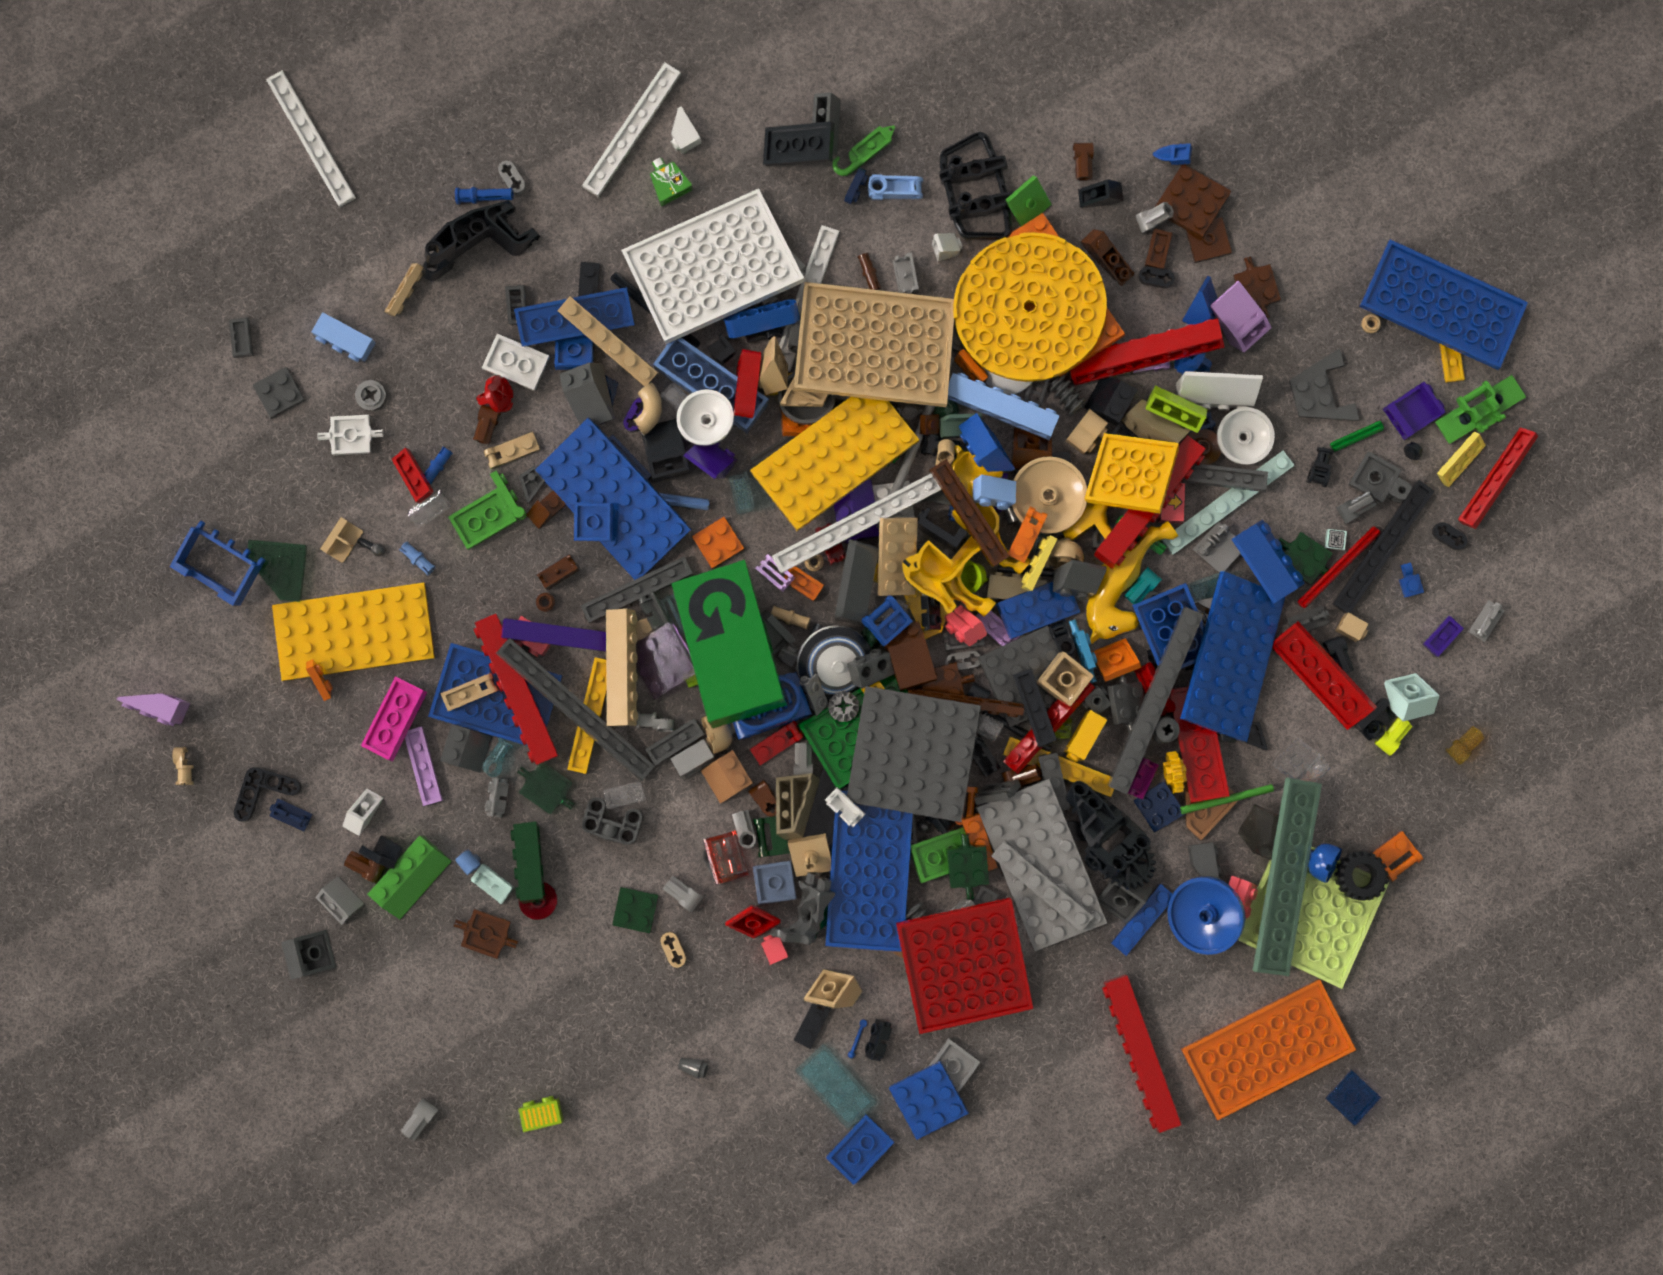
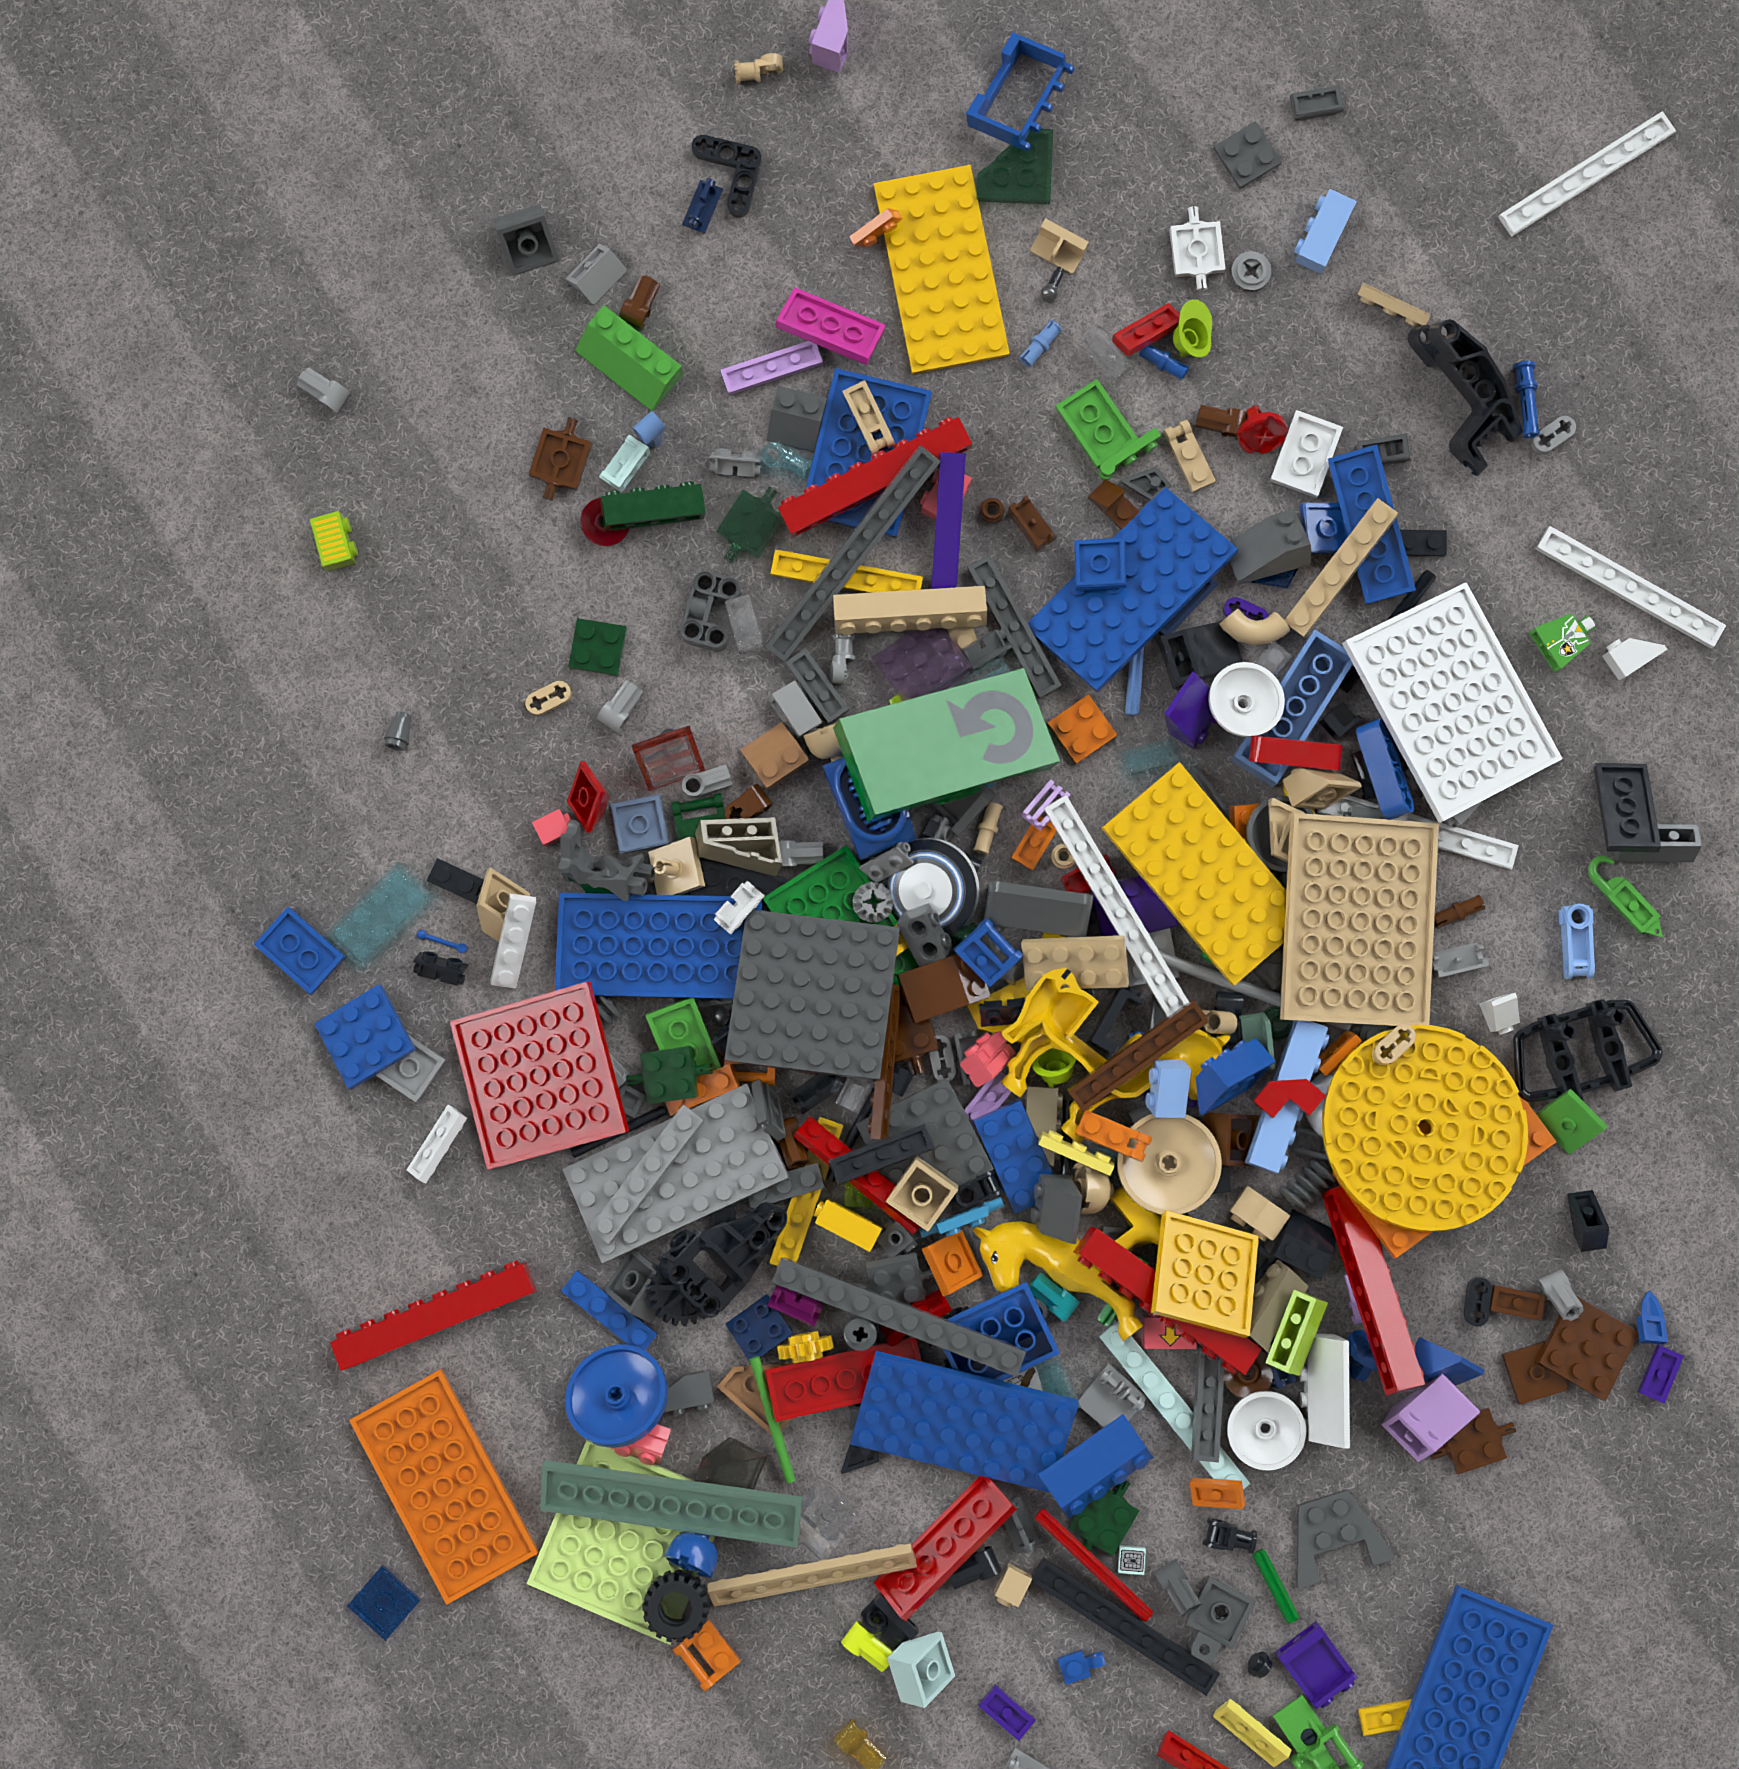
camera: 90 degrees right, 0 degrees up
(362, 812) = (709, 294): white slope -> none
(384, 853) = (656, 324): black panel -> none
(415, 440) = (1194, 330): none -> lime piece
(776, 742) = (821, 817): red plate -> none
(860, 179) = (1564, 884): dark blue plate -> none
(861, 981) = (513, 940): none -> white plate
(929, 424) = (1256, 1000): reddish brown plate -> none
(971, 322) = (1389, 1040): none -> tan beam
(1001, 413) = (1298, 1091): none -> red tile
(1002, 895) = (632, 1125): none -> black bar
(1012, 1047) = (436, 1144): none -> white plate
(1083, 160) = (1635, 1195): reddish brown piece -> none
(1107, 255) = (1502, 1233): reddish brown slope -> none
(1212, 150) = (1660, 1373): none -> dark purple plate
(1289, 474) = (1217, 1493): none -> orange plate
(1341, 774) = (812, 1574): none -> tan plate
(1371, 317) = (1441, 1601): tan plate -> none
(1447, 540) = (1150, 1722): black beam -> none

